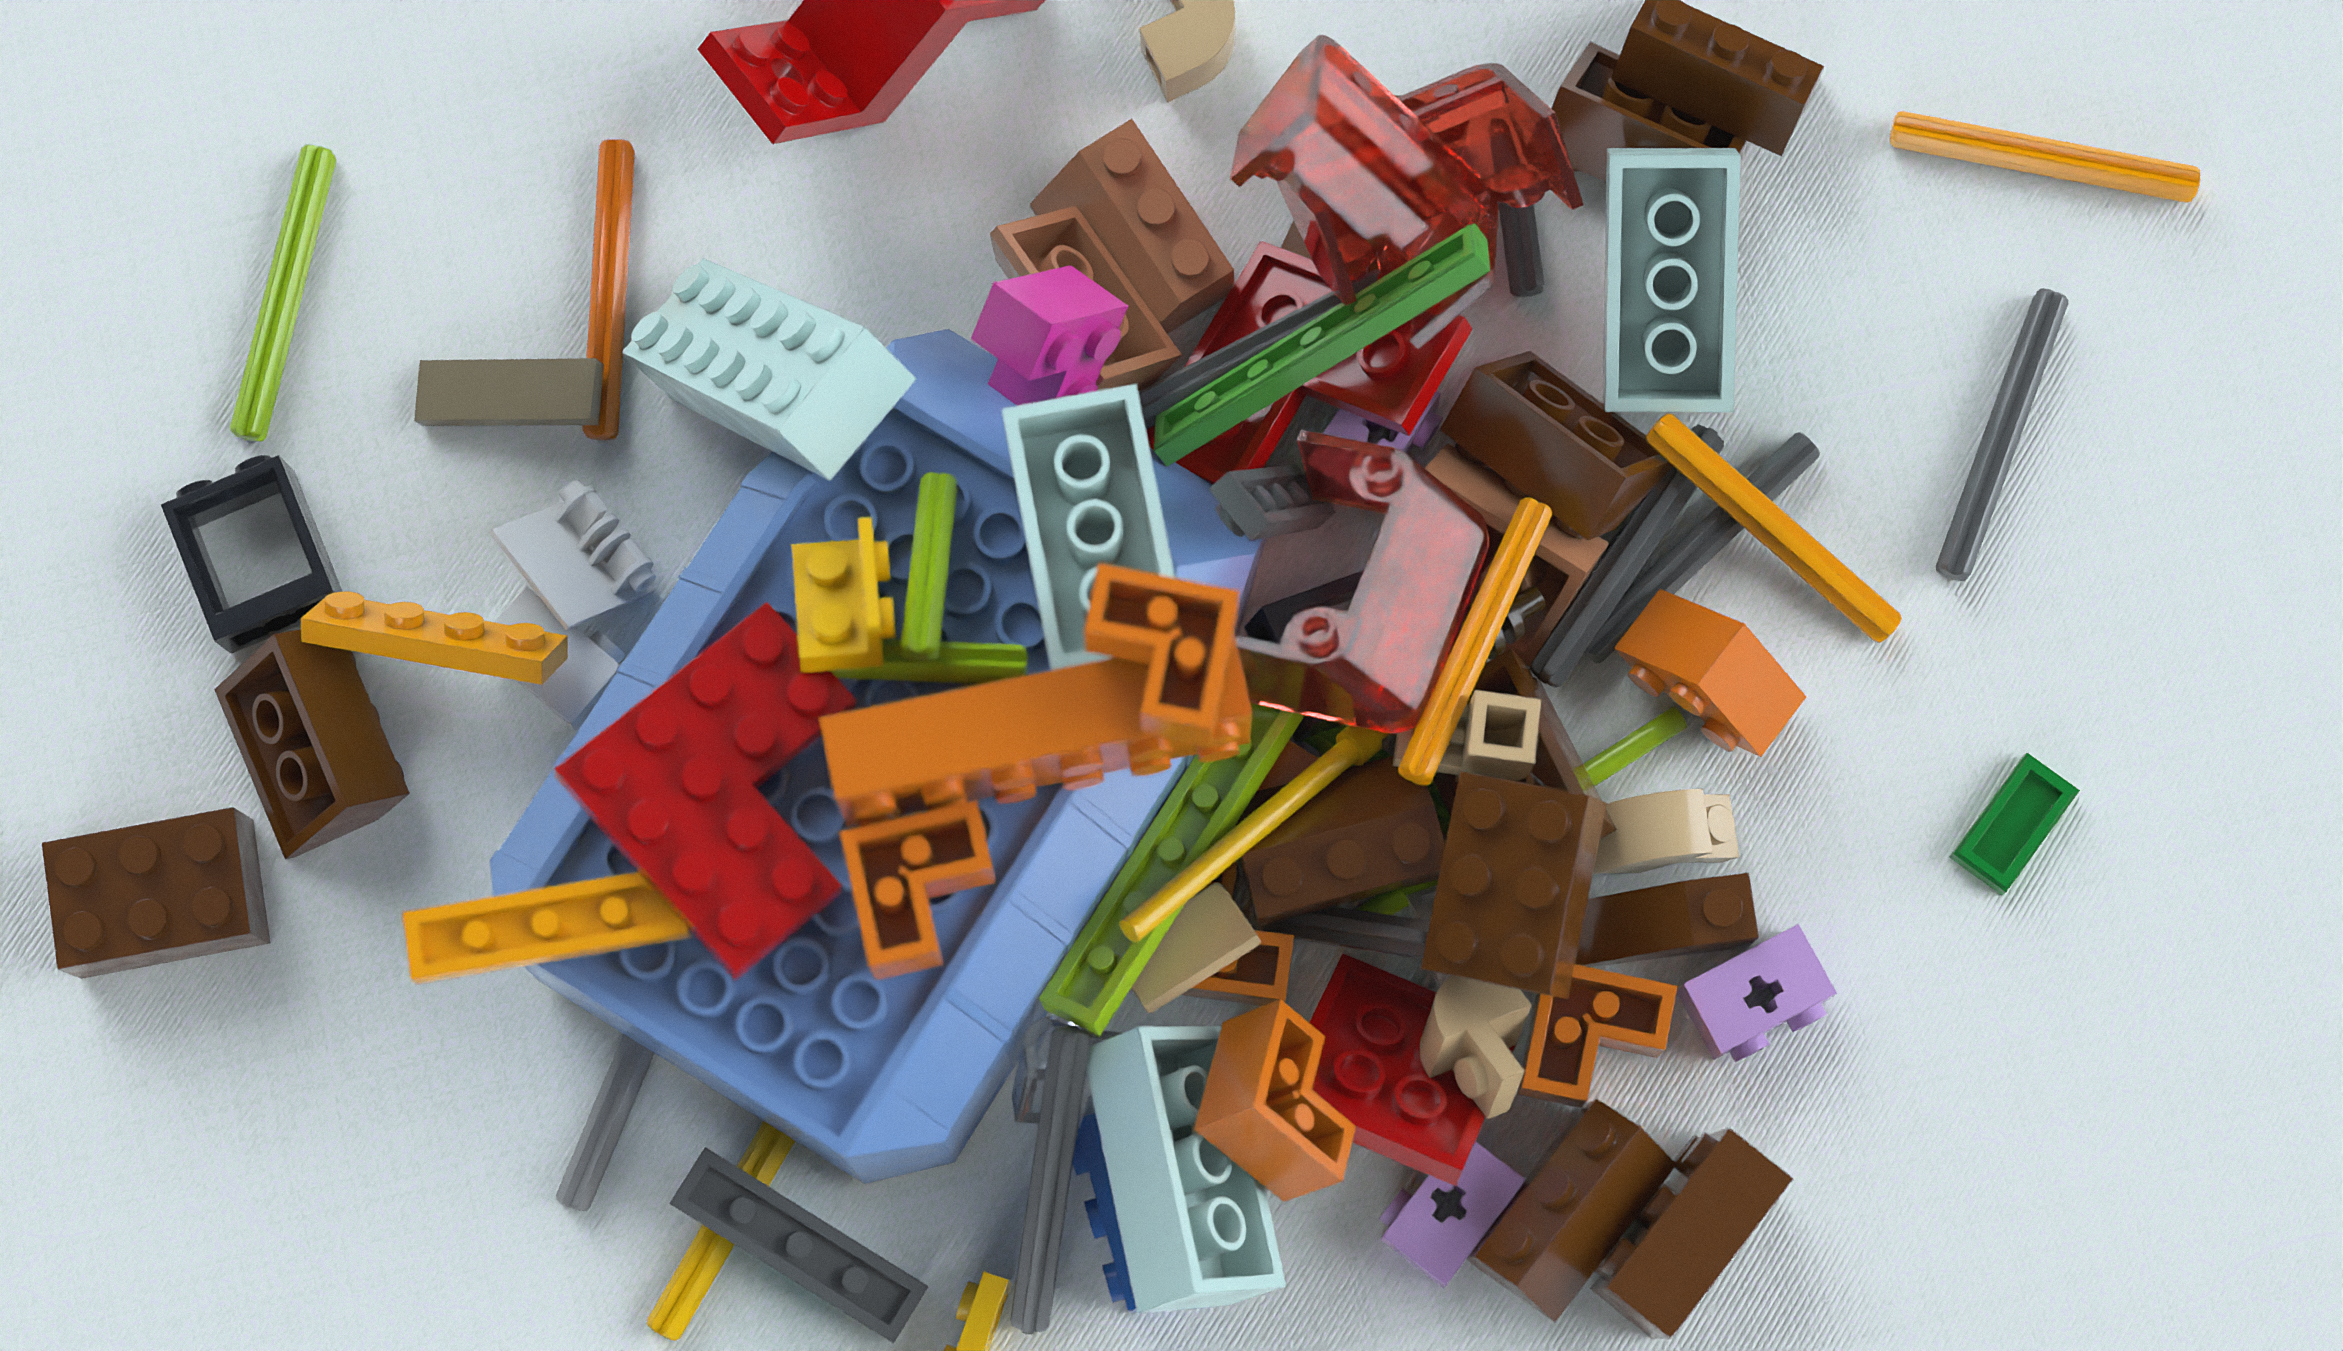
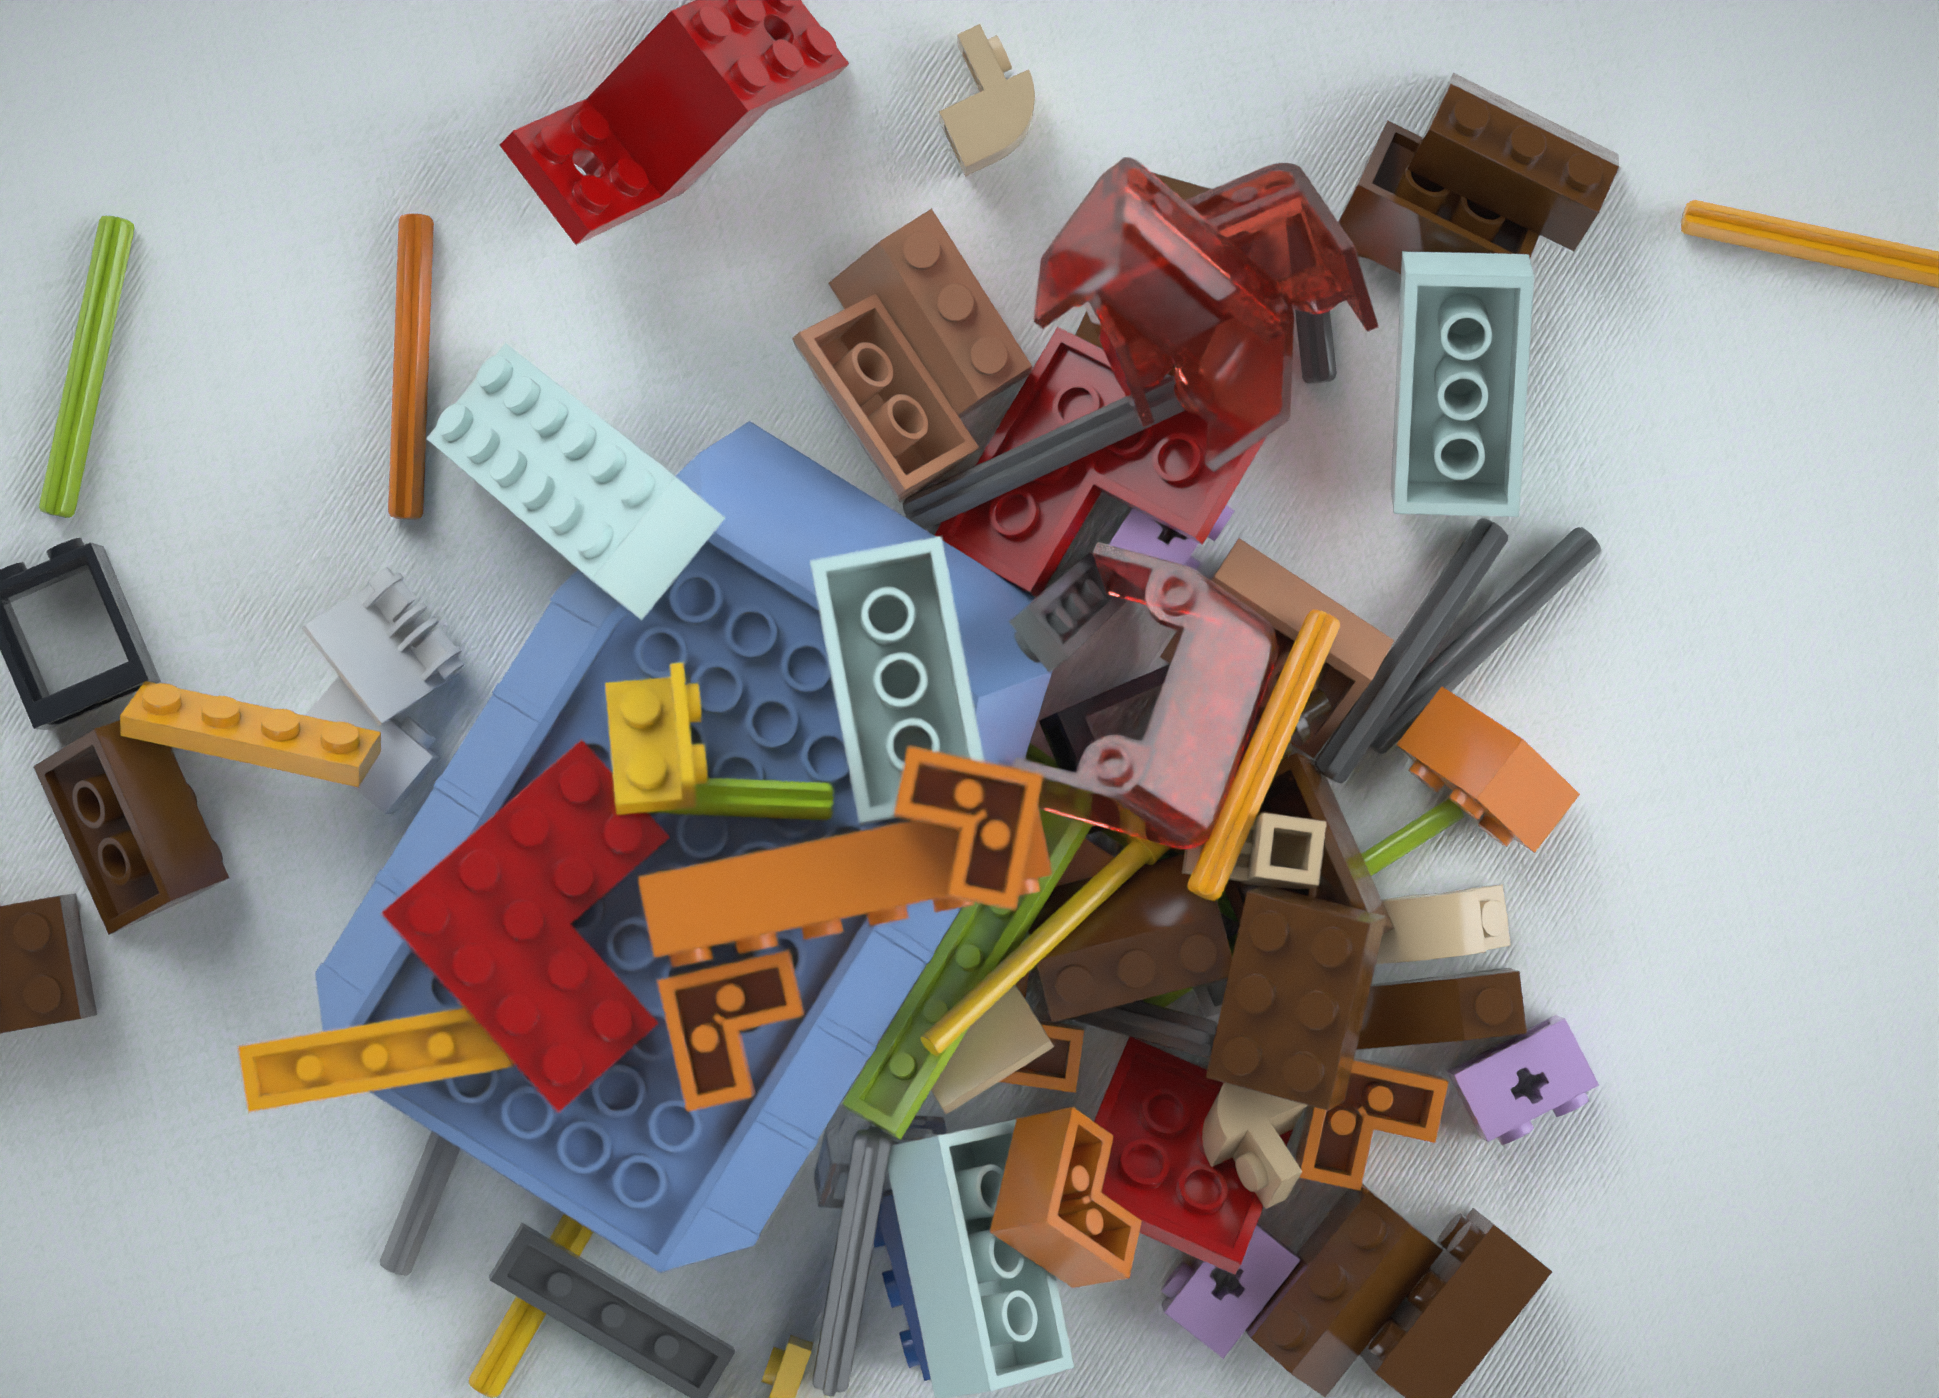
camera: 10 degrees left, 10 degrees up
(509, 392) = (315, 474): dark tan tile -> none
(929, 567) = (739, 707): lime axle -> none
(1048, 334) = (854, 458): dark pink brick -> none
(1321, 343) = (1119, 459): bright green tile -> none
(1554, 444) = (1344, 542): reddish brown slope -> none
(1773, 528) = (1553, 626): light orange axle -> none
(2002, 435) = (1779, 529): dark grey axle -> none
(2014, 823) = (1774, 913): green tile -> none

